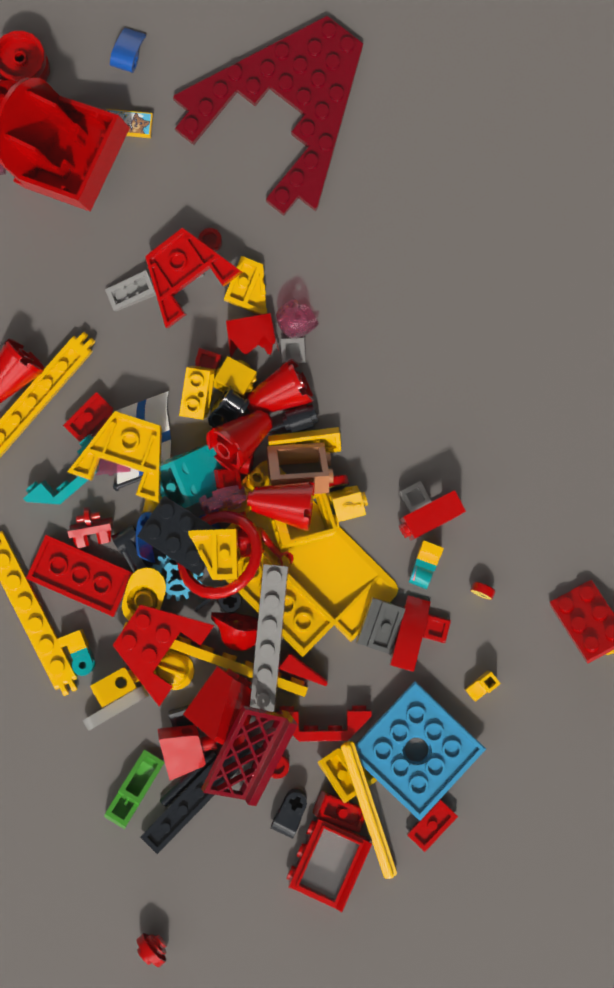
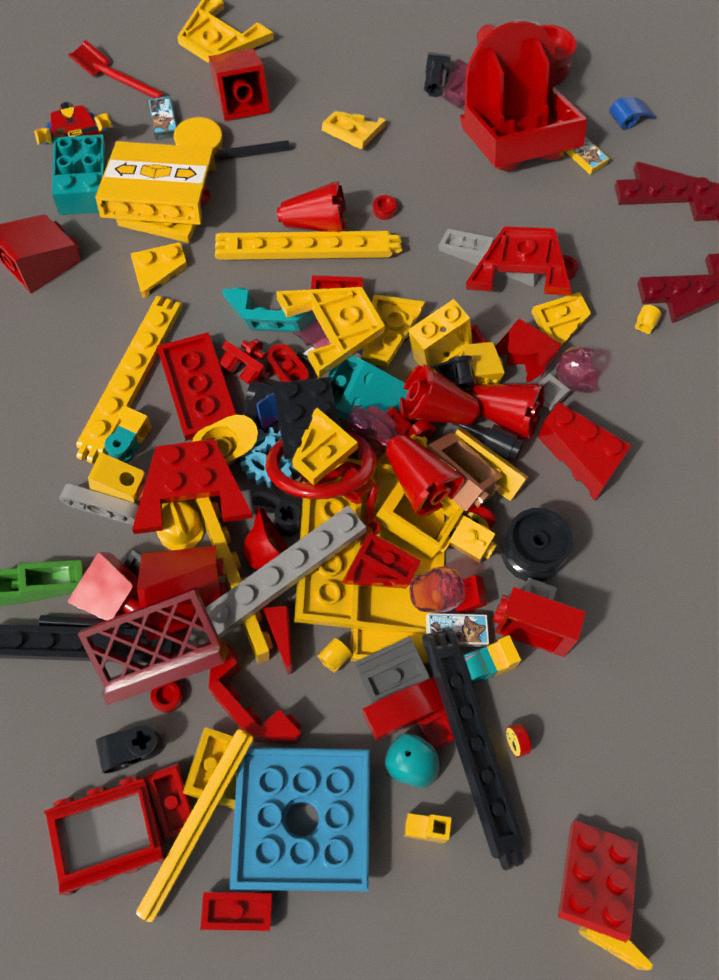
camera: 45 degrees right, 20 degrees down
(45, 316) = (384, 207): none -> red tile
(120, 504) = (290, 368): none -> red plate
(147, 402) = (398, 317): none -> yellow wing
(300, 228) = (647, 318): none -> yellow hose
(314, 574) = (381, 565): none -> red wing
(341, 649) = (334, 655): none -> yellow hose
(351, 371) = (583, 447): none -> red wedge
(359, 555) = (437, 590): none -> helmet
(377, 536) = (474, 594): none -> red plate
(385, 453) = (536, 544): none -> black wheel
(390, 563) = (469, 629): none -> tile
(448, 657) = (419, 768): none -> teal helmet
(462, 618) = (475, 748): none -> black hinge

